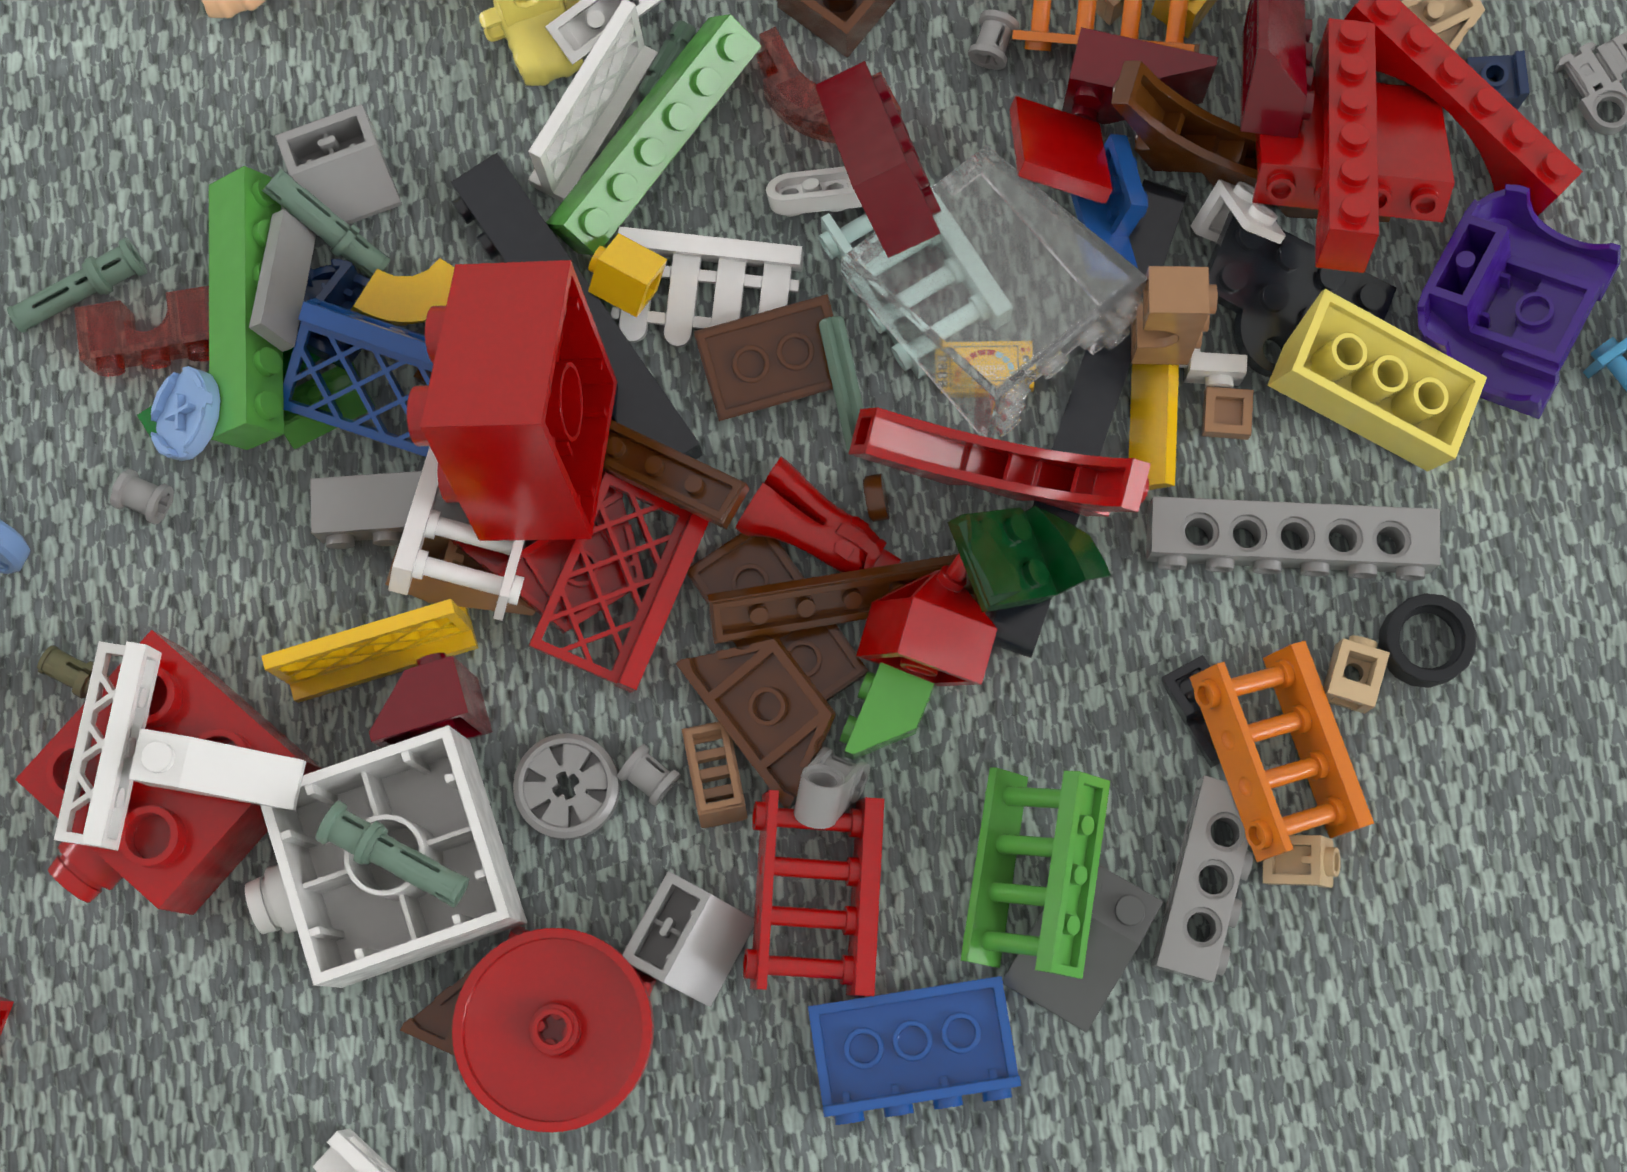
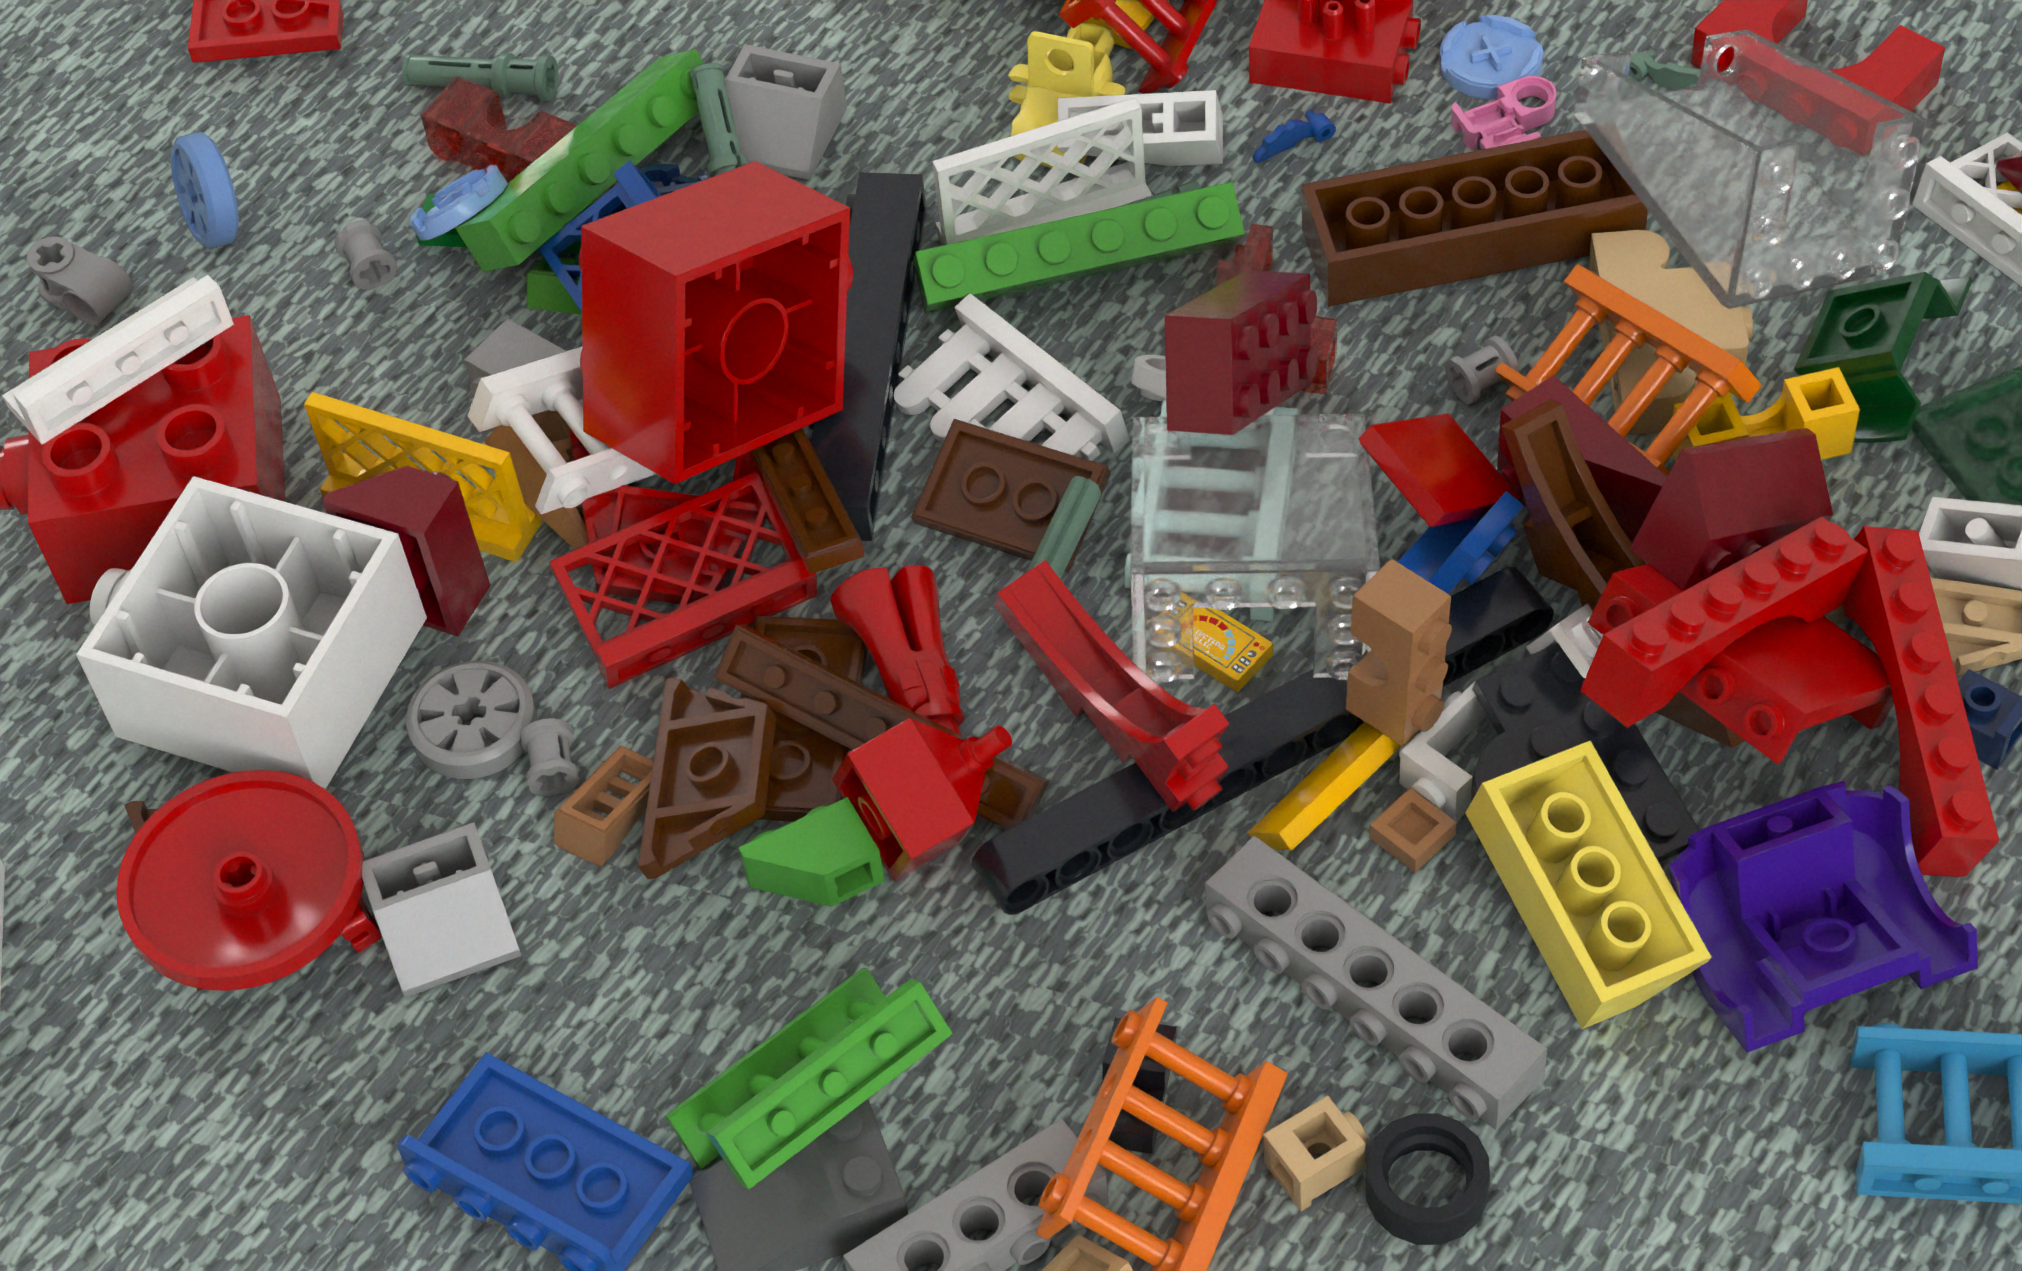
camera: 40 degrees right, 25 degrees down
(216, 769) = (174, 424): white slope -> none
(282, 281) = (647, 142): light grey tile -> none
(372, 845) = (236, 573): sand green pin -> none
(626, 274) = (936, 331): yellow brick -> none
(828, 789) = (694, 871): light grey piece -> none
(858, 921) = (605, 1014): red fence -> none
(876, 497) = (990, 671): reddish brown tile -> none
(1023, 556) = (1056, 777): dark green piece -> none

